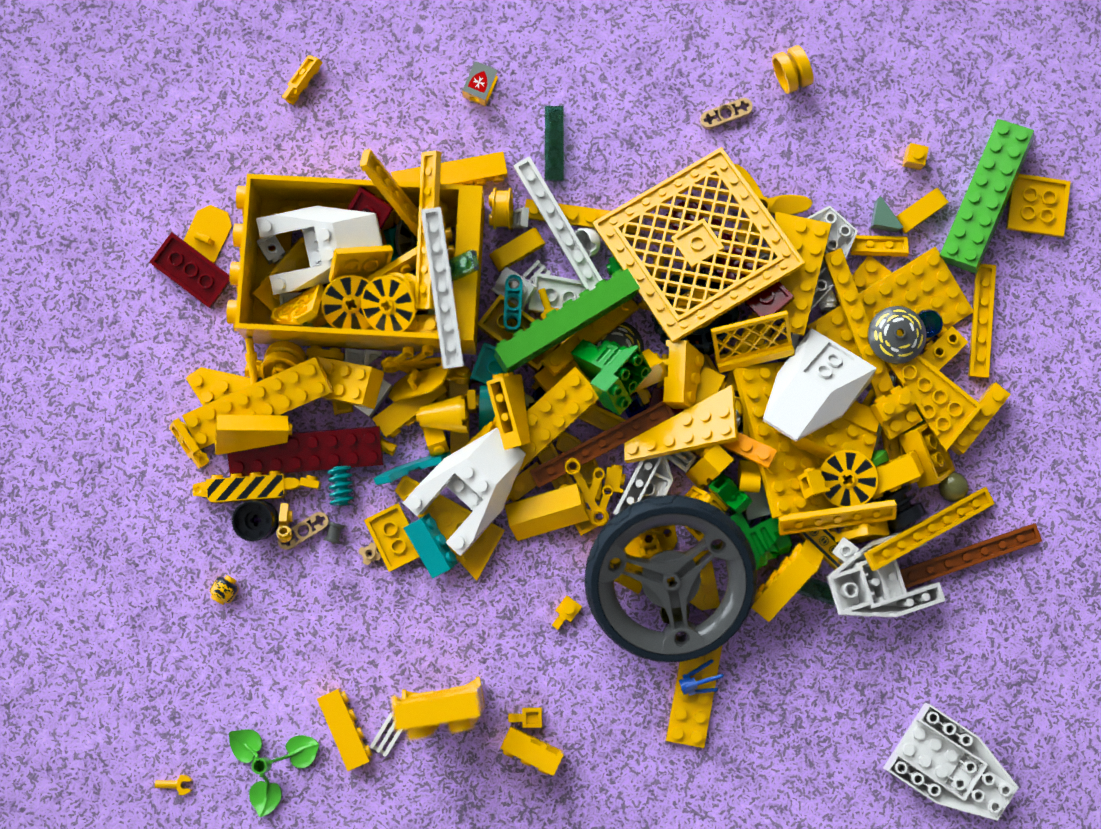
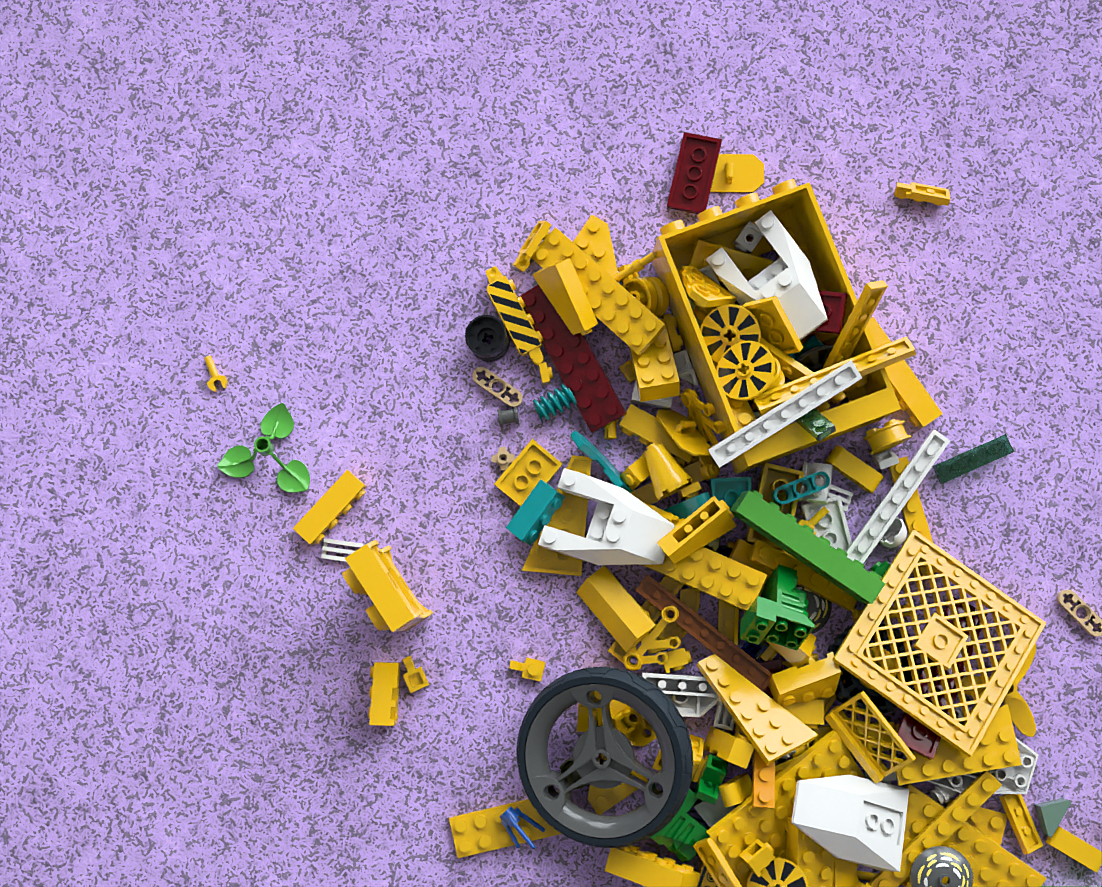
camera: 70 degrees right, 0 degrees up
(224, 589) = (411, 338): head -> none
(285, 517) = (502, 365): yellow plate -> none
(480, 83) = (998, 362): piece -> none
(522, 484) = (632, 573): yellow hinge -> none

